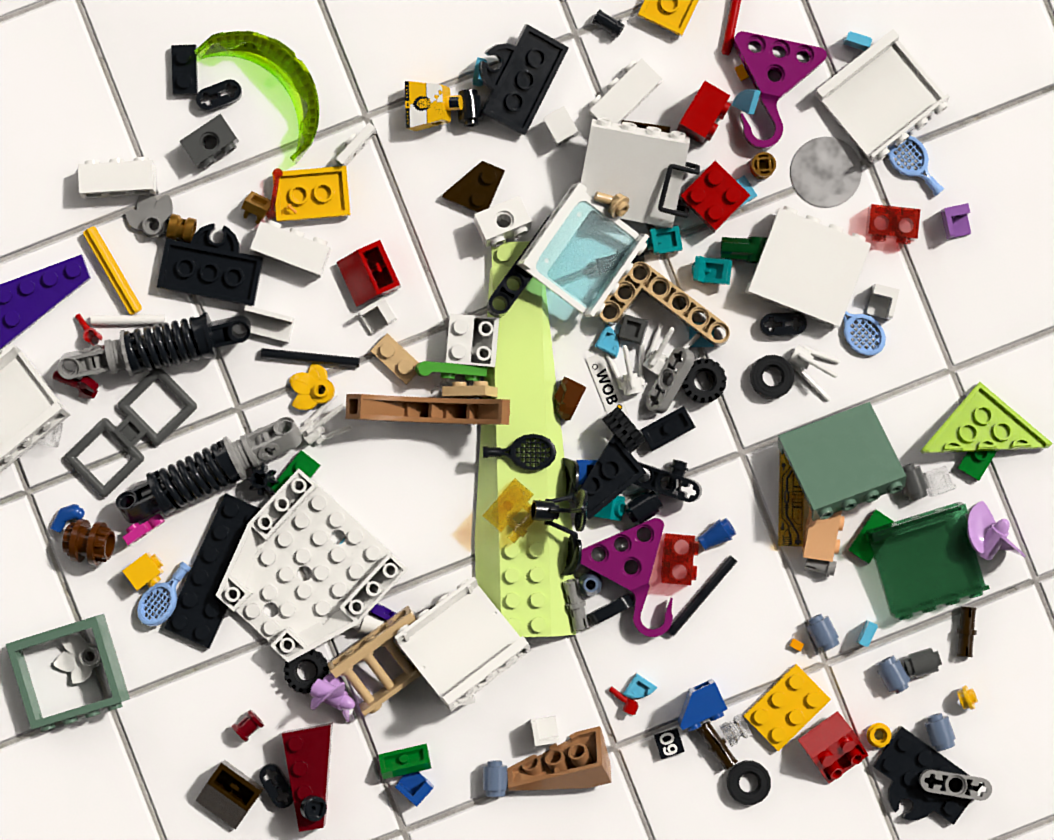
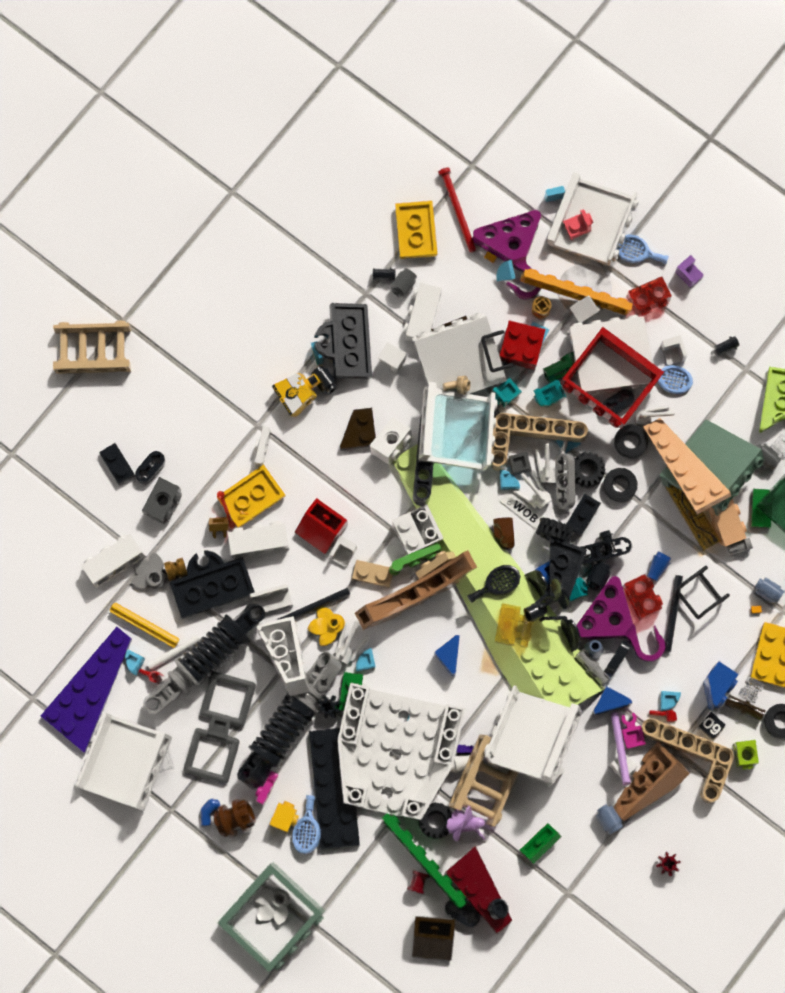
camera: 30 degrees left, 10 degrees down
(78, 305) = (133, 661): none -> medium azure tile
(86, 386) = (171, 713): dark red bar -> none
(247, 392) = (284, 648): none -> white wedge
(270, 718) = (430, 867): none -> green plate
(282, 64) = (182, 422): clear neon green windscreen -> none
(332, 451) = (365, 661): none -> medium azure tile
(414, 787) = (557, 857): blue panel -> none
(426, 498) = (448, 654): none -> blue slope
(551, 711) = (620, 748): none -> lavender bar
(572, 652) = (610, 701): none -> blue slope
(575, 703) = (632, 734): none -> dark pink plate
(624, 46) = (403, 282): none -> dark grey brick
(633, 759) = (694, 750): none -> tan beam
(691, 786) = (749, 745): none -> lime brick
(703, 112) = (482, 290): red brick -> none
(730, 433) = (616, 495): none -> black tyre
(758, 570) = (700, 573): none -> black piece
(805, 162) = (569, 289): none -> light orange plate
(809, 196) = (584, 309): none -> white panel
(811, 455) = (693, 477): none -> light nougat wing
(827, 282) = (629, 355): none -> red window
(862, 93) = (578, 224): none -> coral bracket
(945, 330) = (727, 345): none -> black pin

